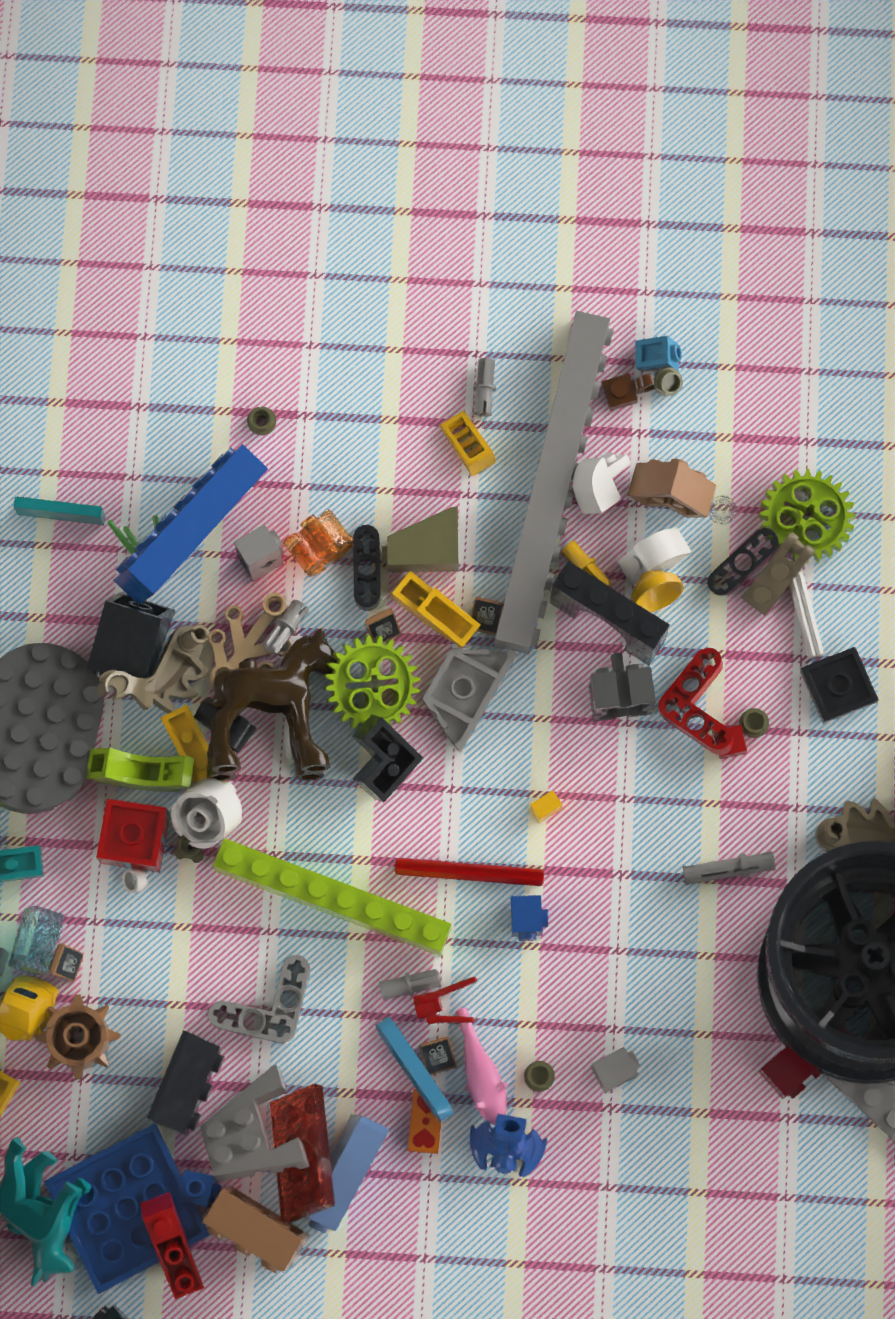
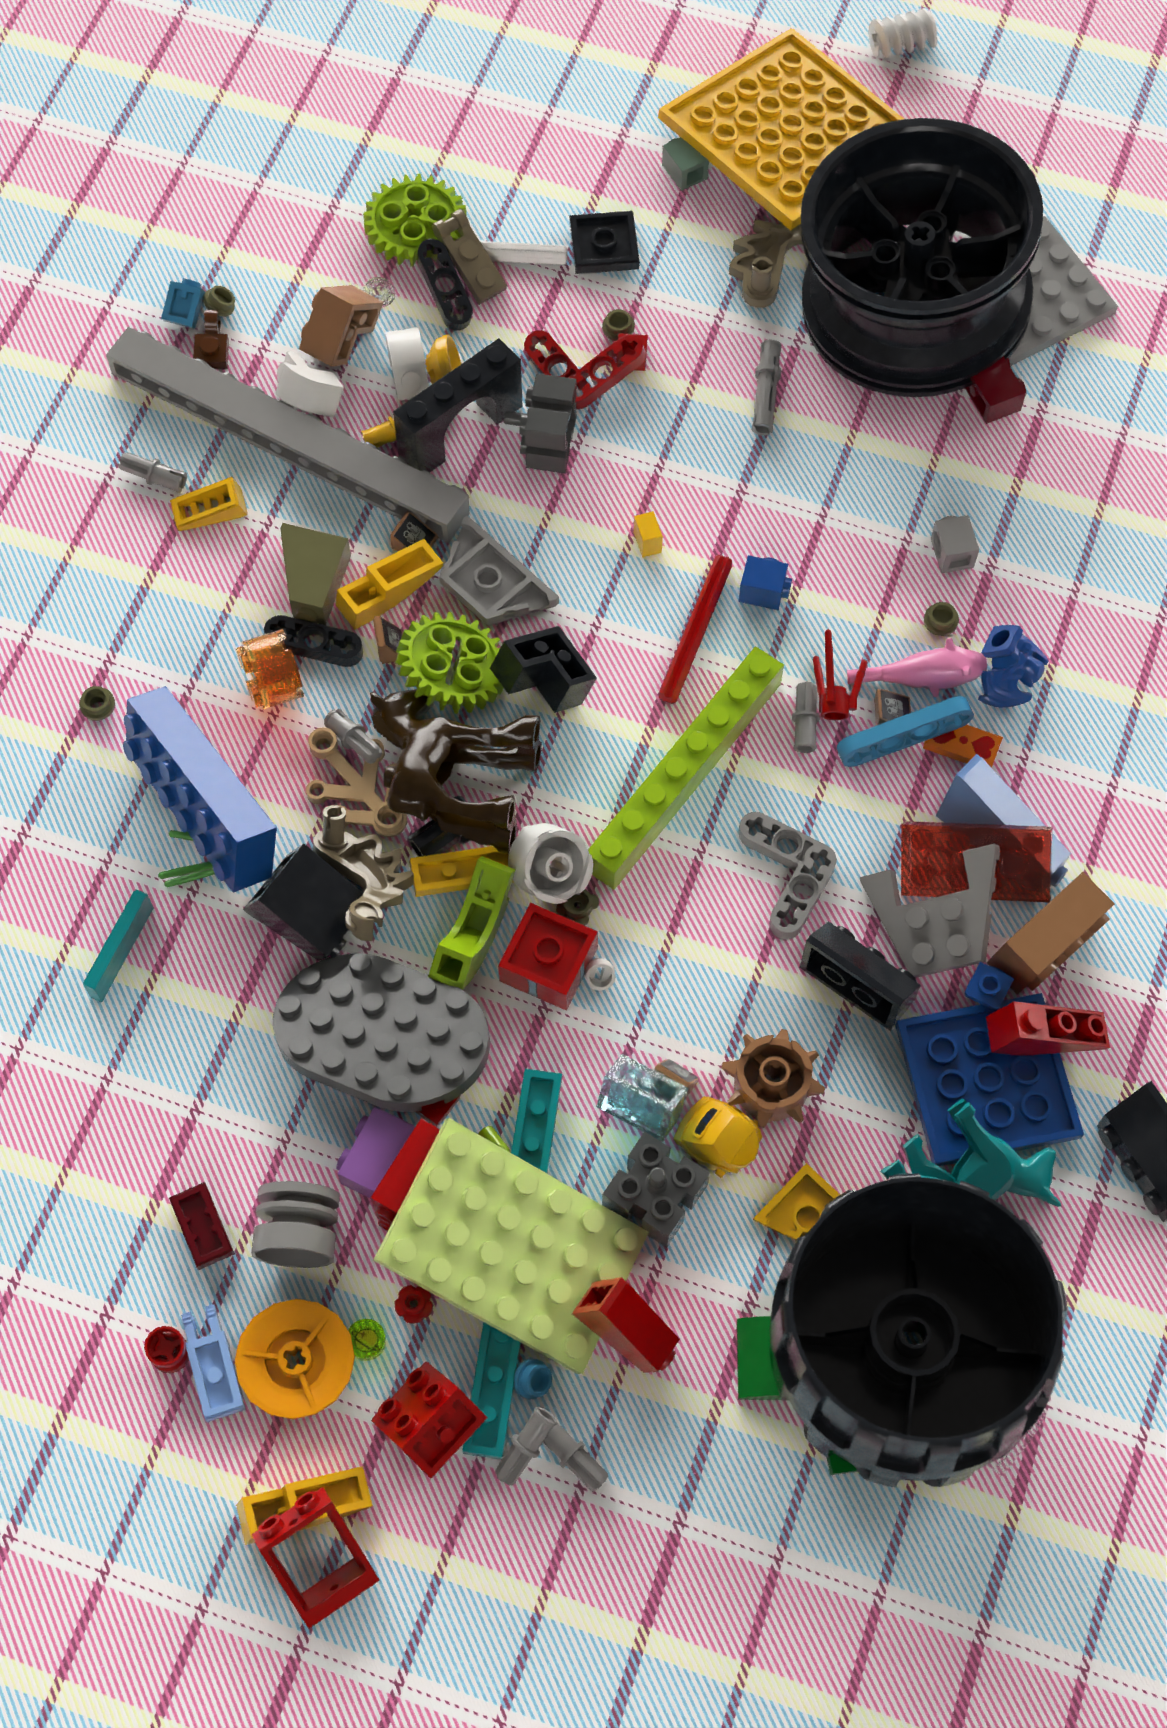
camera: 75 degrees left, 10 degrees down
(259, 552) = (257, 734): light grey brick -> none

